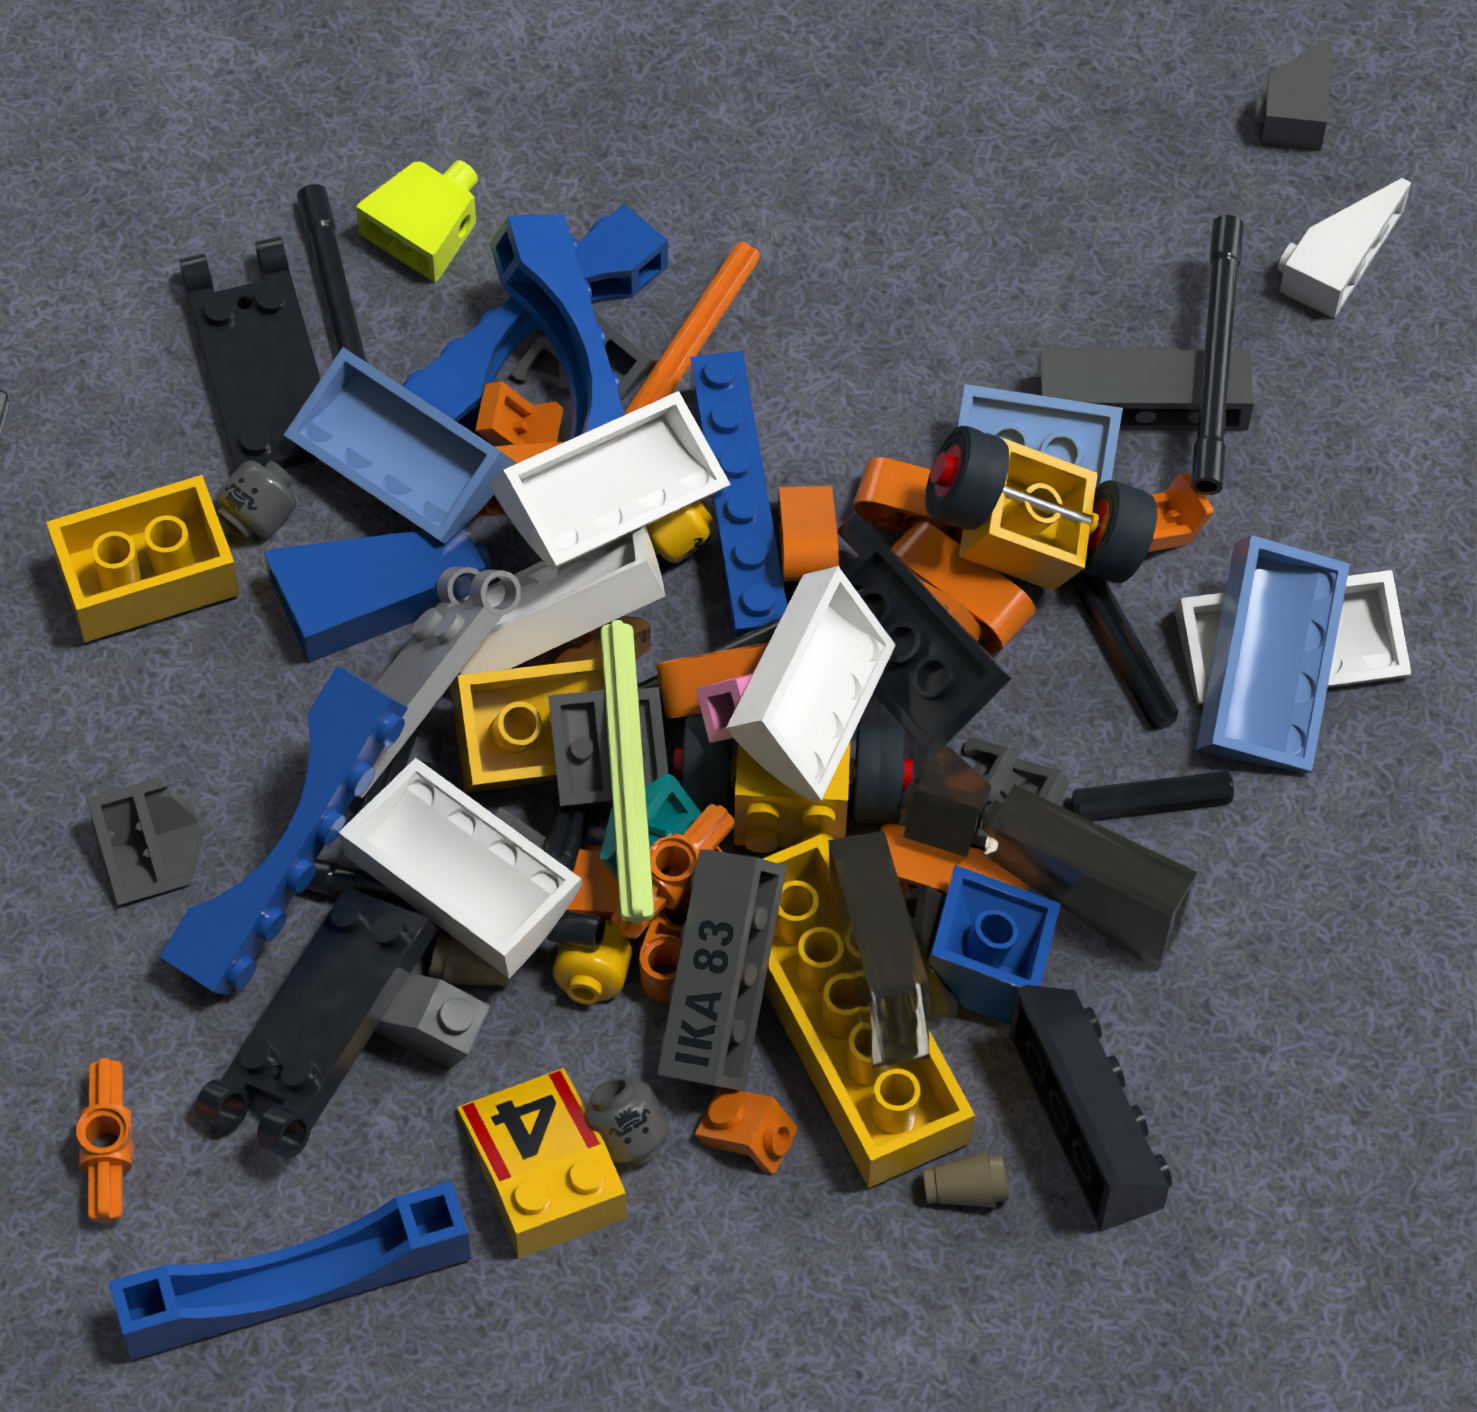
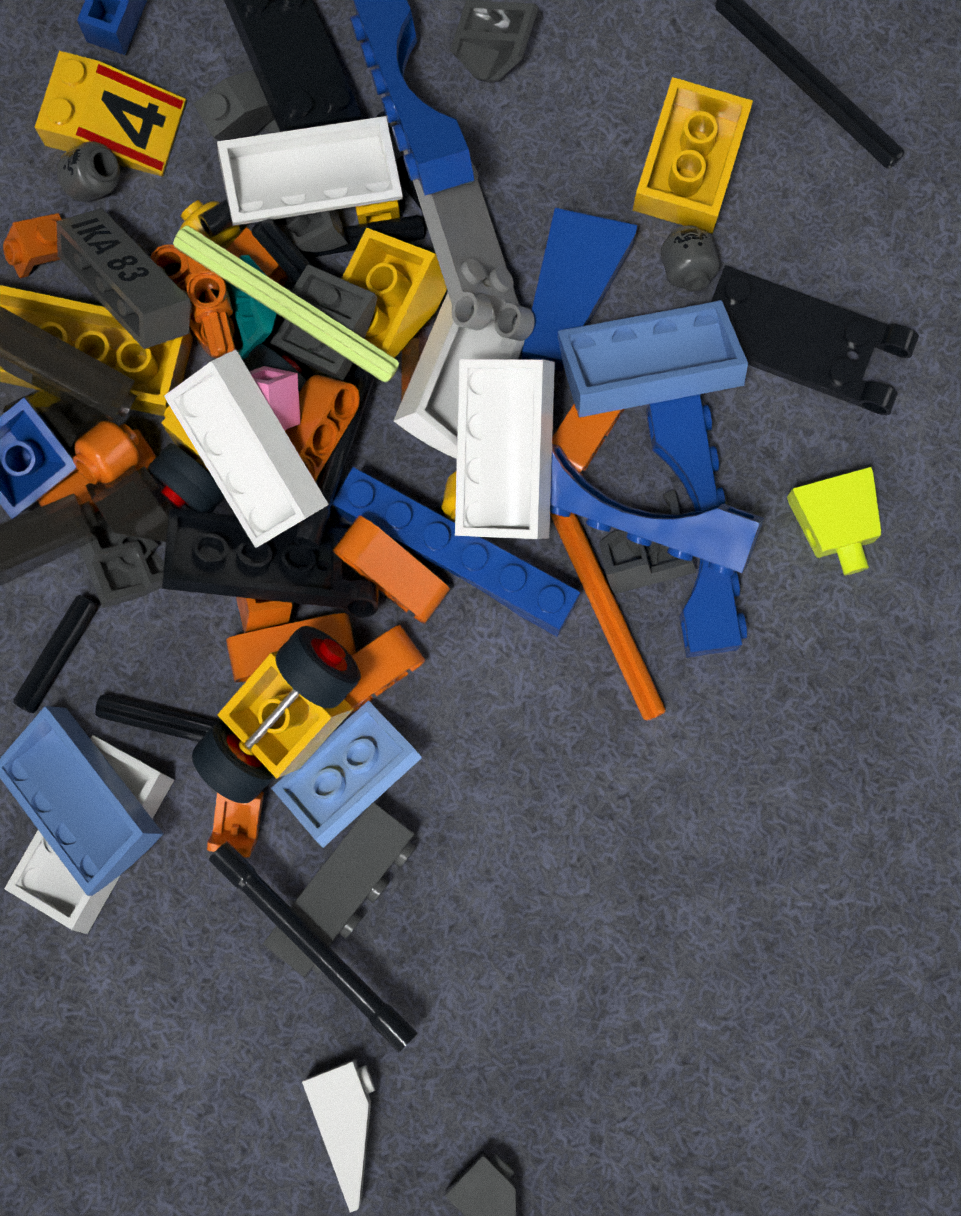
camera: 130 degrees right, 20 degrees up
(320, 228) = (882, 448): black piece -> none
(513, 420) = (624, 458): orange bracket -> none
(923, 842) = (106, 452): none -> orange head

